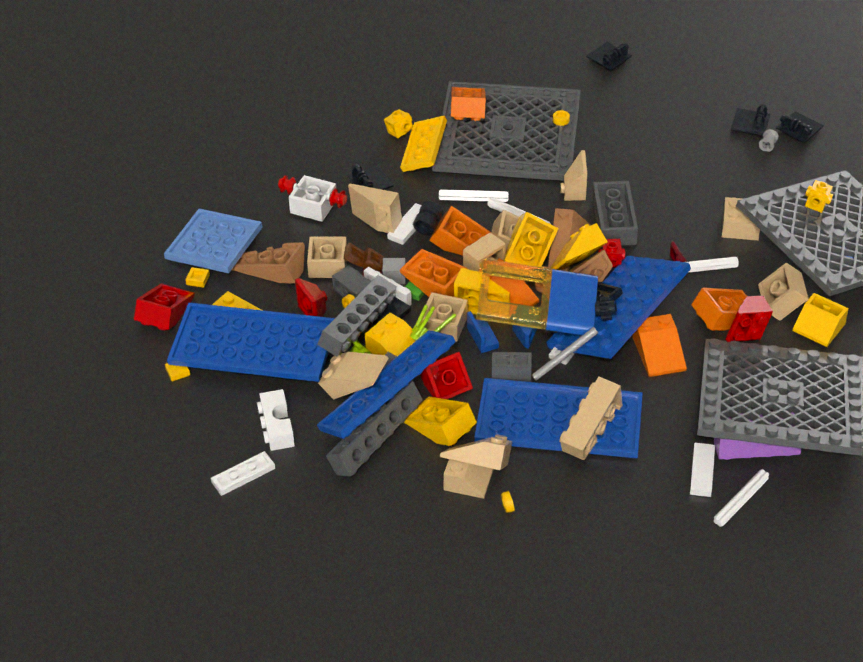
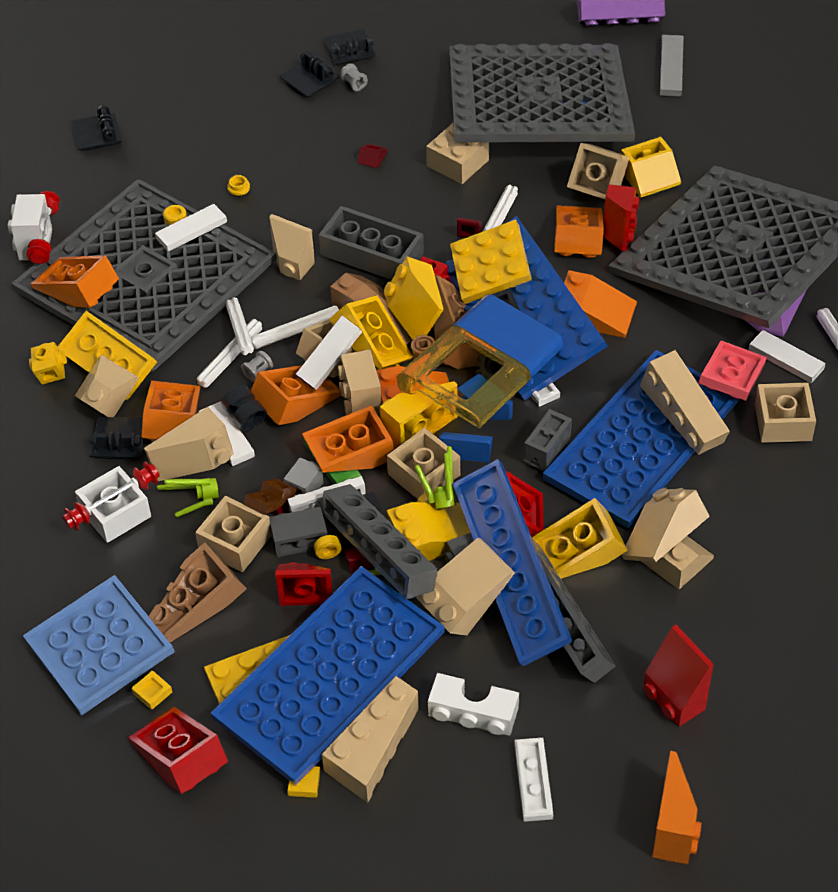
camera: 60 degrees left, 5 degrees up
(221, 383) = (371, 740): none -> tan wedge
(250, 543) = (677, 824): none -> orange slope
(353, 508) = (679, 677): none -> red slope
(355, 232) = (205, 489): none -> lime plant
(397, 155) = (106, 386): none -> tan slope
(411, 186) = (168, 407): none -> orange slope
(466, 209) = (260, 363): none -> light grey bush
(492, 186) = (239, 326): none -> white axle
(497, 64) = (33, 226): none -> white brick
(497, 227) = (329, 352): none -> white tile
(507, 502) = (741, 536): yellow tile -> none
(556, 129) = (190, 227): none -> white tile
(565, 353) = (565, 374): light grey bar -> none
(605, 308) = (541, 310): black gear -> none
(618, 135) = (238, 185): none -> yellow plate
(636, 482) = (785, 412): none -> tan brick
(639, 270) = (490, 261): none -> yellow plate
(654, 439) = (732, 370): none -> coral plate
(706, 181) = (371, 155): none -> dark red slope
(818, 196) = (494, 75): yellow brick -> none

